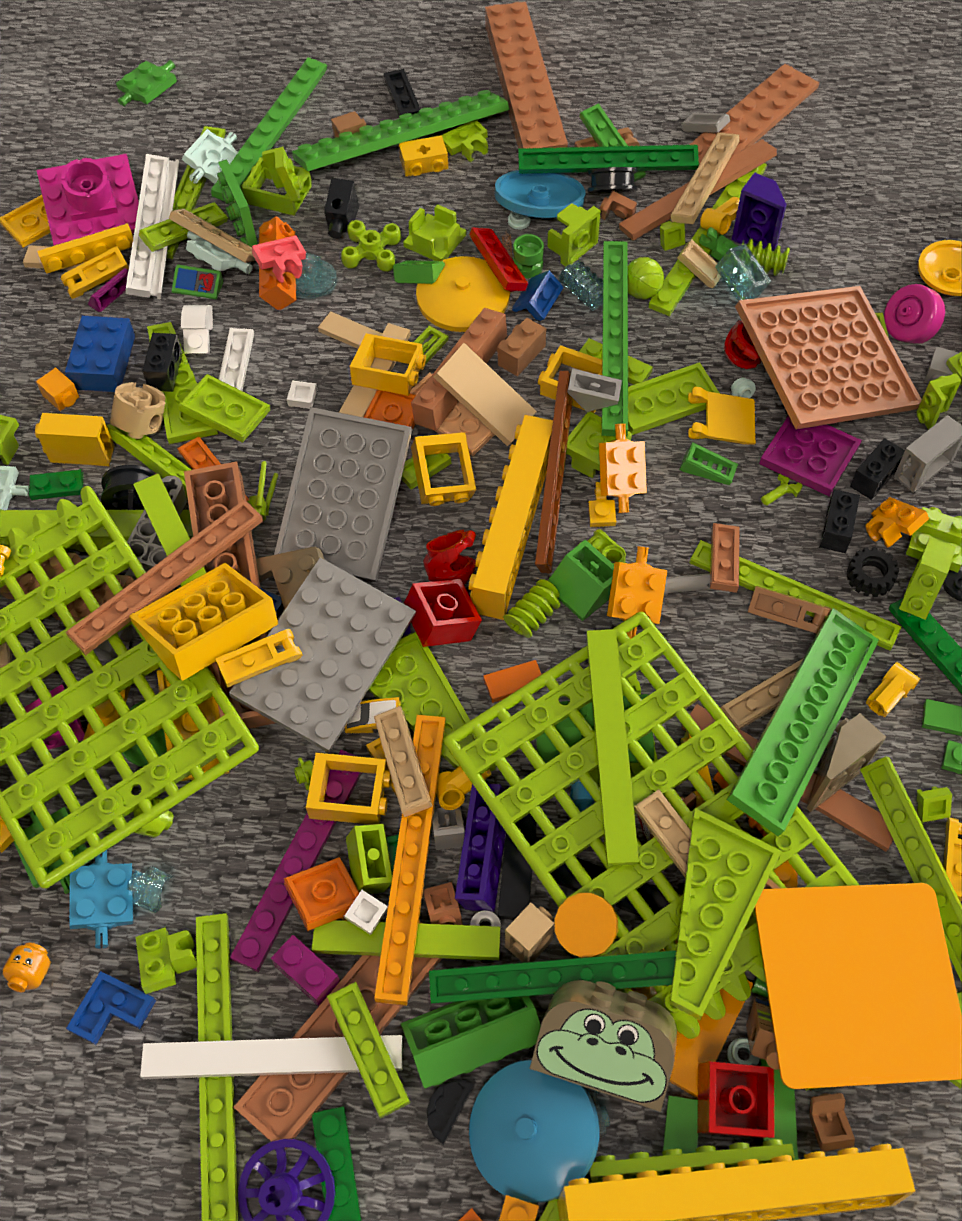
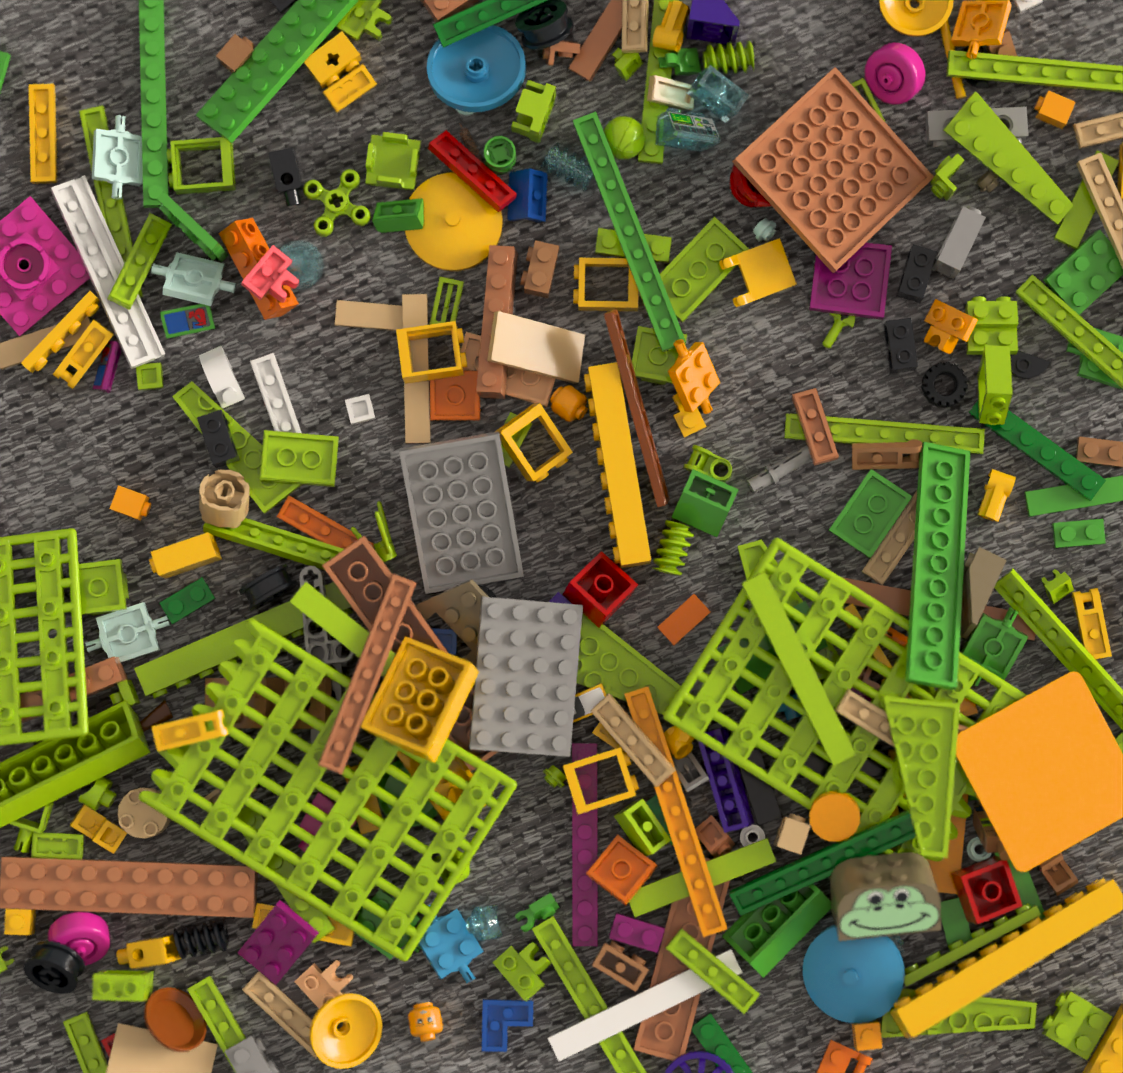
camera: 25 degrees left, 25 degrees up
(100, 353) = (146, 447): blue brick -> none
(139, 310) = (149, 376): none -> lime tile
(167, 128) = (42, 133): none -> yellow plate
(212, 234) = (182, 266): tan tile -> none
(216, 900) = (541, 909): none -> bright green plate
(258, 657) = (482, 714): yellow plate -> none
(268, 999) = (620, 966): none -> medium nougat brick
(282, 172) = (224, 171): lime bracket -> none
(366, 912) = (664, 874): white plate -> none
(427, 178) = (349, 88): none -> yellow plate
(444, 557) = (589, 541): red helmet -> none
(446, 1107) = (783, 981): black plate -> none
(492, 454) = (569, 403): none -> light orange head
(593, 390) = (641, 315): light grey slope -> none
(637, 589) = (755, 499): light orange plate -> none
(696, 468) = (745, 337): bright green slope -> none
(700, 291) = (686, 130): none -> clear light blue slope
(751, 656) = (870, 513): none -> bright green plate
(844, 829) = (995, 644): none -> bright green plate

